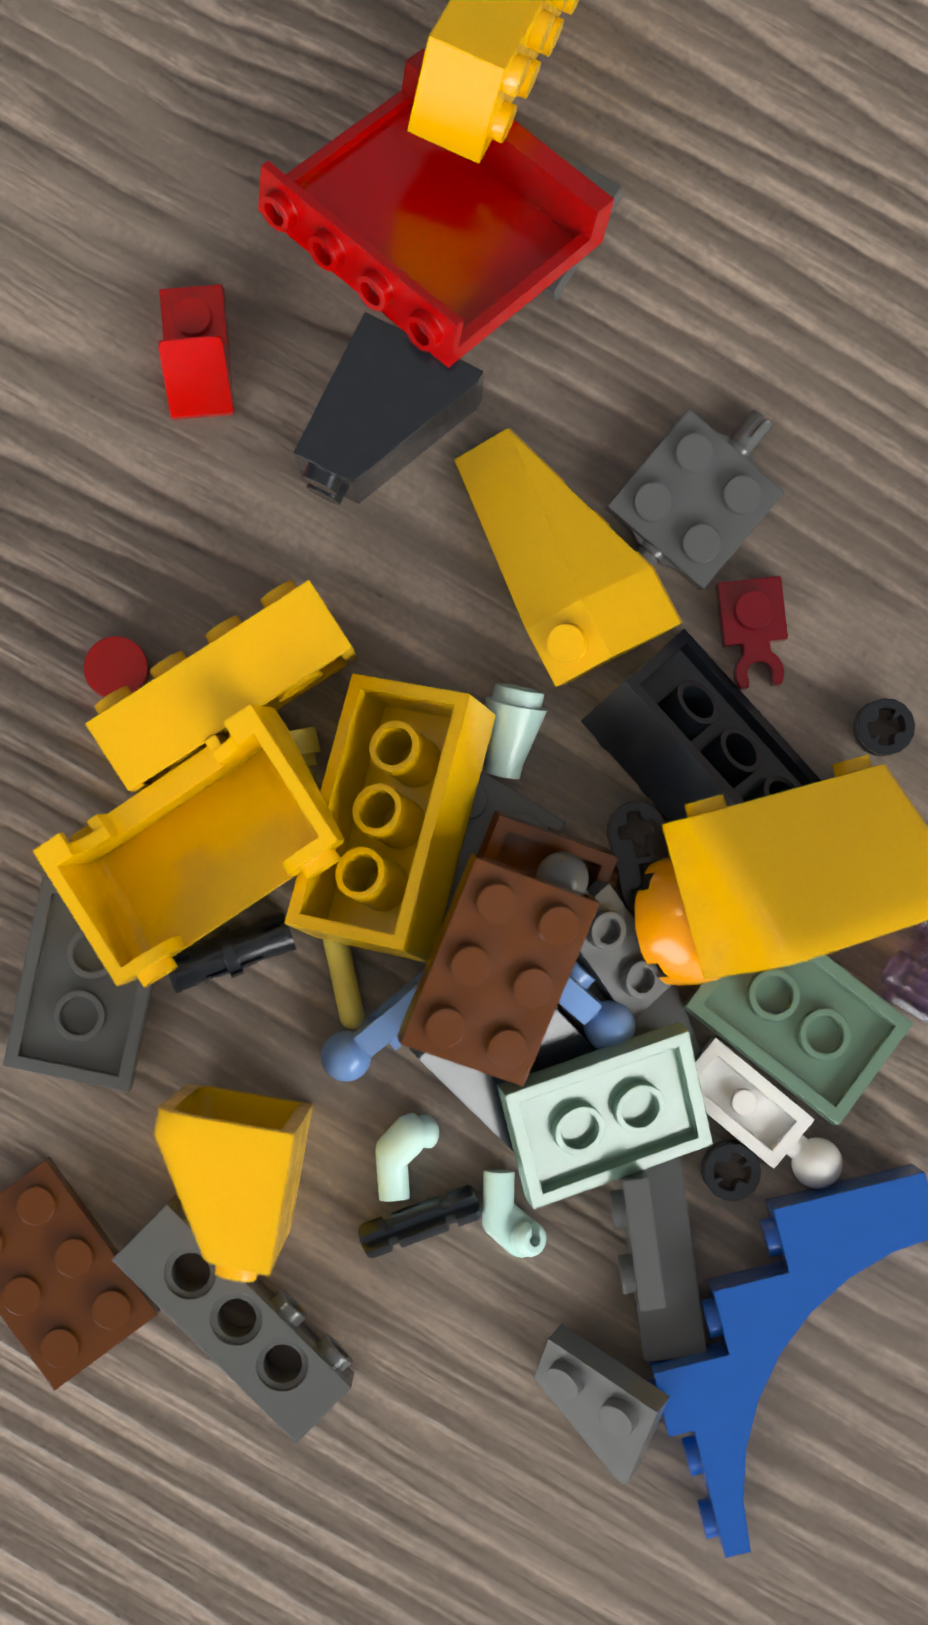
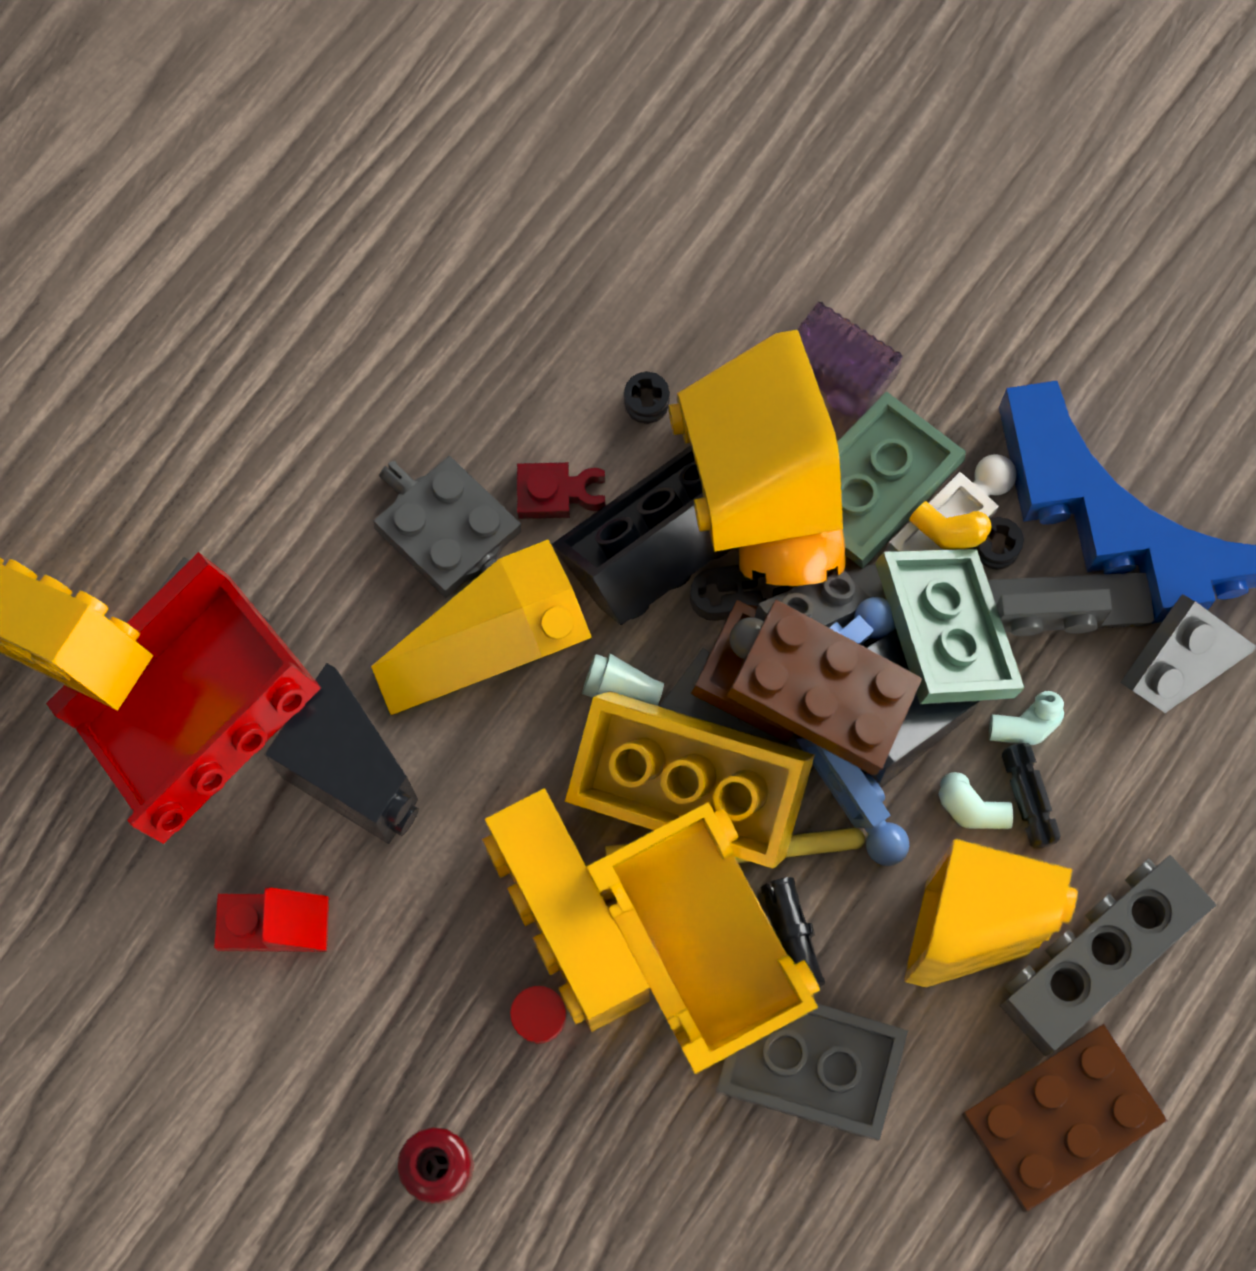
camera: 80 degrees left, 15 degrees down
(730, 1114) = (951, 532): none -> yellow arm

